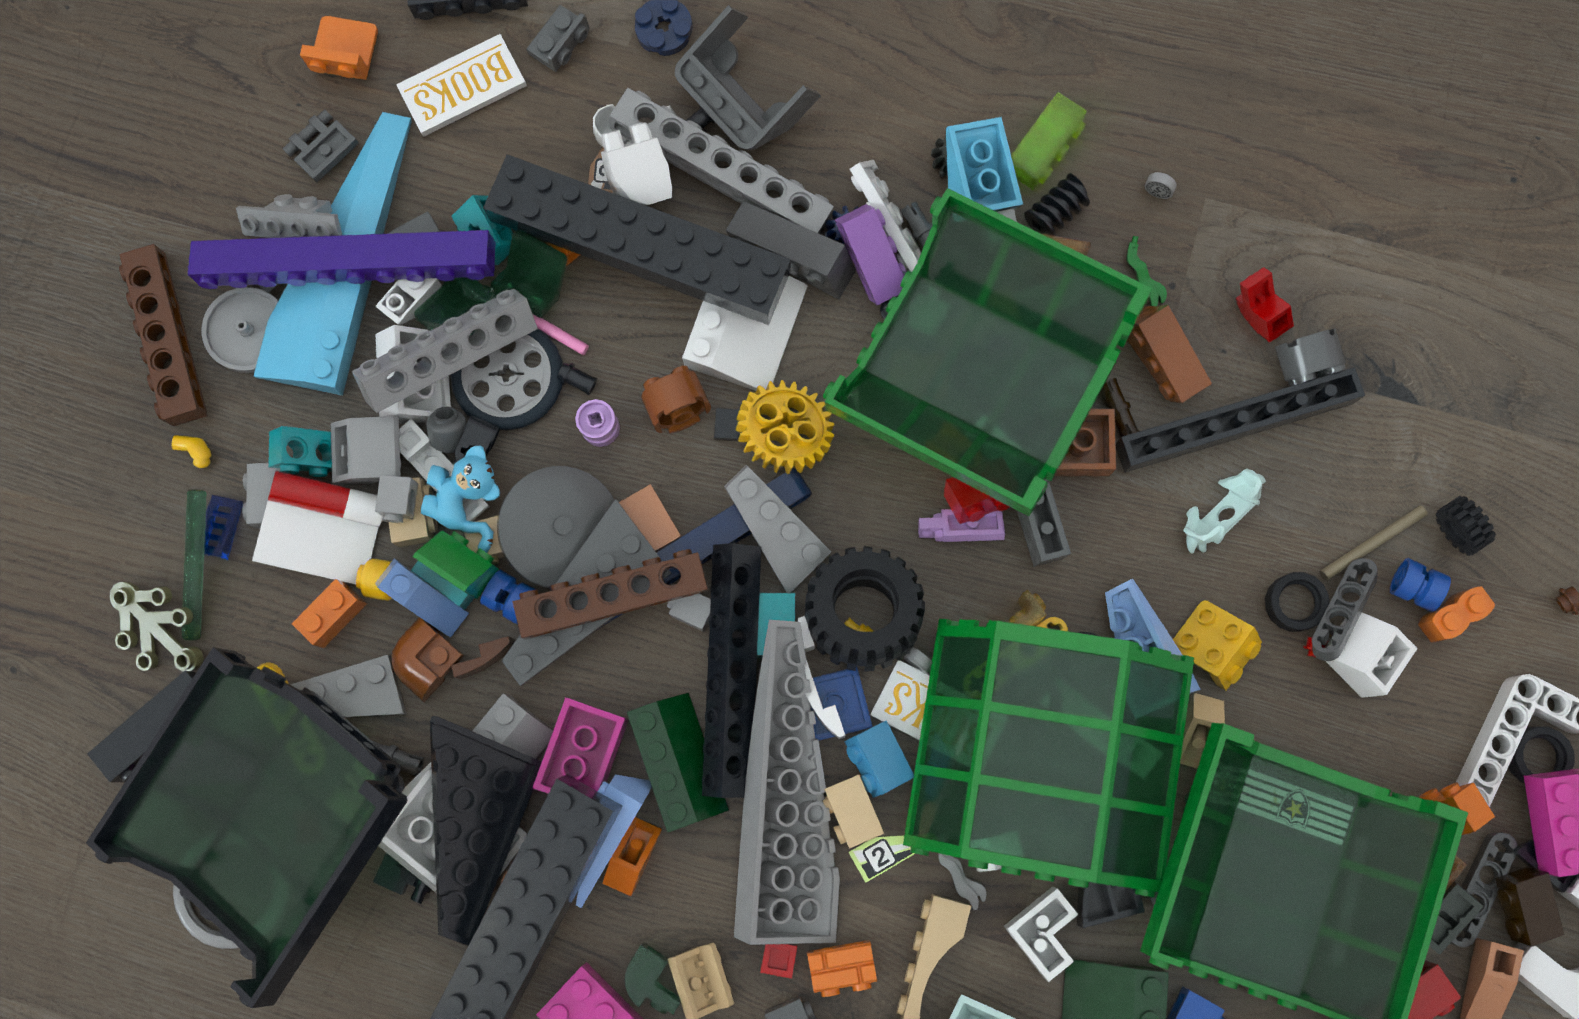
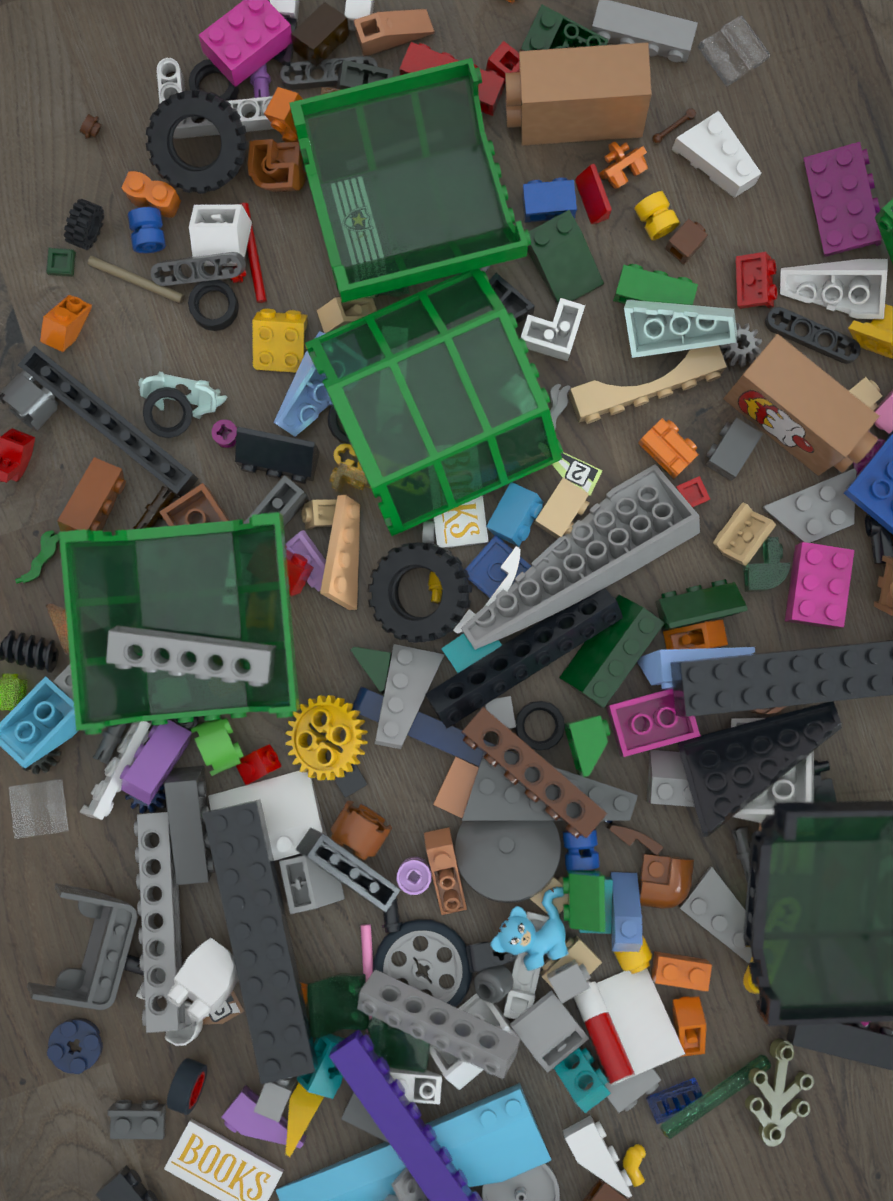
camera: 125 degrees left, 5 degrees up
(232, 417) = (591, 1152): none -> white slope
(276, 587) = (690, 1024): none -> orange slope
(458, 178) = (301, 1110): none -> yellow sticker
(481, 141) = (242, 1118): none -> medium lavender slope
(486, 160) = (274, 1098): none -> light grey brick
(556, 96) = (186, 1086): none -> black wheel
(586, 455) = (445, 871): none -> nougat slope
(606, 671) = (586, 742): none -> green slope
(634, 629) = (553, 711): none -> black tyre
(645, 361) = (347, 869): none -> brick
(660, 325) = (308, 884): none -> light grey slope
(660, 883) = (700, 605): none -> dark green slope
(804, 349) = (258, 764): none -> red bracket
(824, 519) = (375, 664): none -> dark green slope
(847, 320) = (217, 745): none -> bright green brick
(902, 124) = (38, 809): none -> clear slope
(949, 557) = (342, 558): none -> light nougat wing
(992, 279) = (122, 654): none -> light grey brick
(1008, 569) = (318, 513): none -> tan bracket
(1097, 560) = (276, 455): none -> black slope
(1149, 532) = (227, 438): none -> magenta wheel
(1207, 460) = (161, 431): none -> black tyre
(1321, 675) = (254, 263): none -> red bar
(1371, 443) = (64, 323): none -> orange slope
(1408, 761) = (276, 165): none -> dark orange brick
(1439, 480) = (61, 262): none -> dark green tile
(1492, 653) = (162, 150): none -> black tyre
(1514, 808) = (260, 81): none -> medium lavender pin

